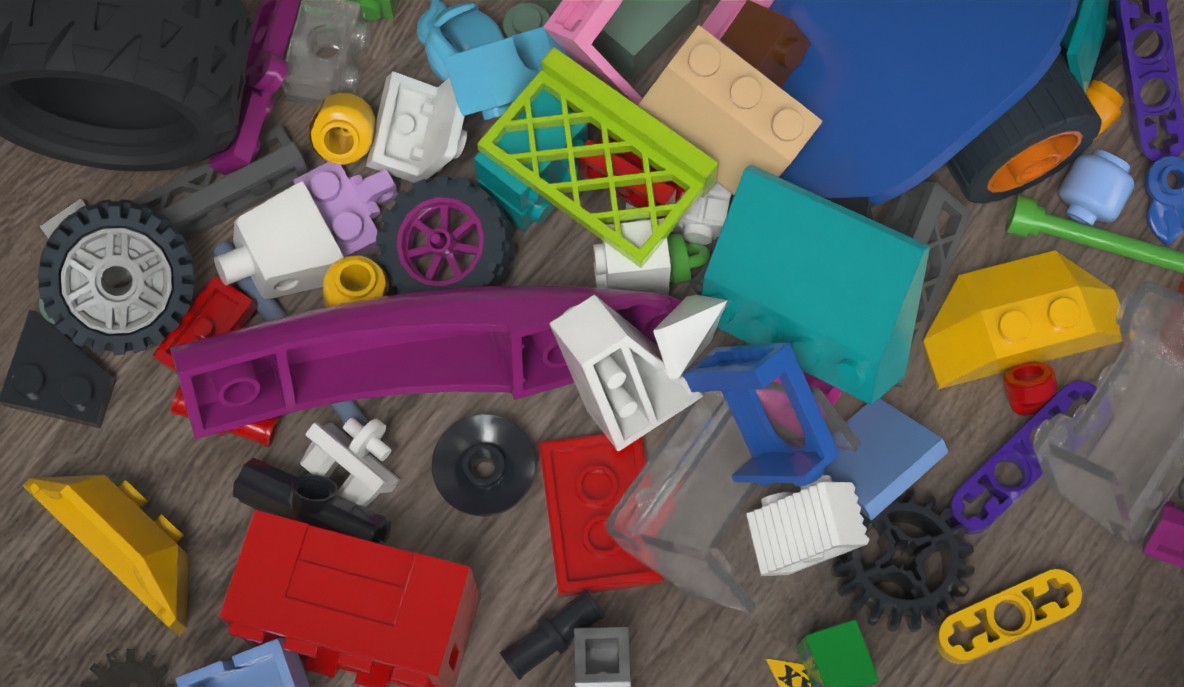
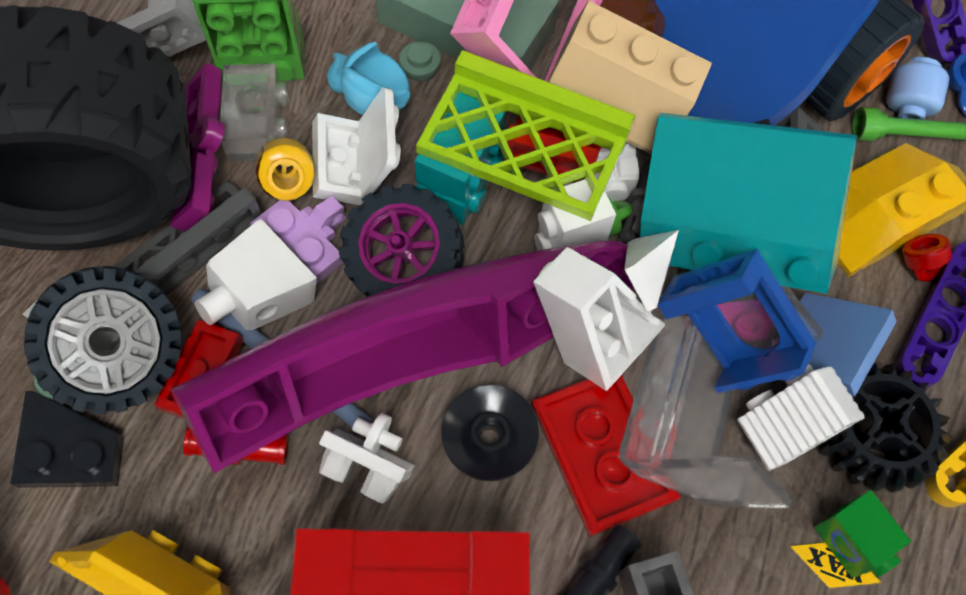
camera: 20 degrees left, 5 degrees down
(307, 500) = (336, 506): black piece -> none
(354, 280) = (329, 292): yellow head -> none
(498, 72) = (414, 85): medium azure arch -> none

